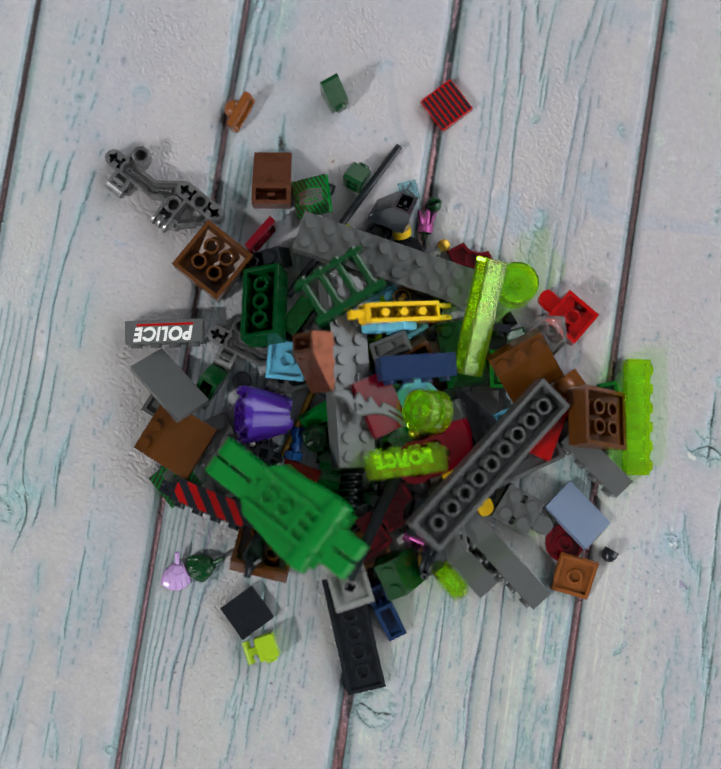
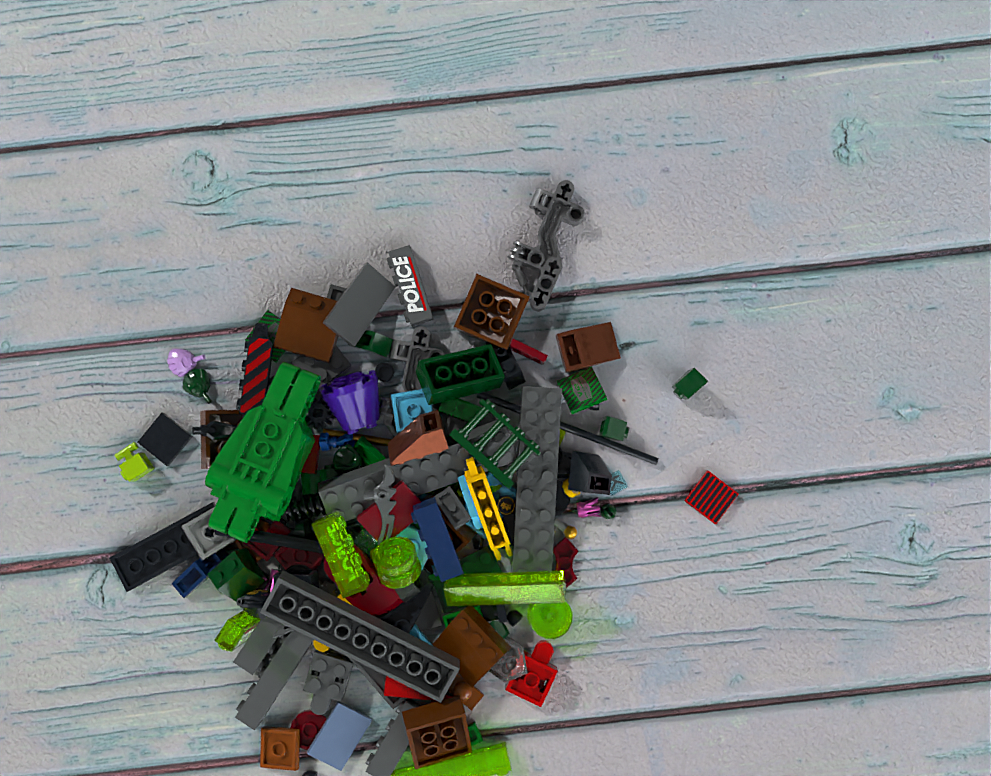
camera: 80 degrees right, 0 degrees up
(238, 111) = (646, 295): dark orange tile -> none

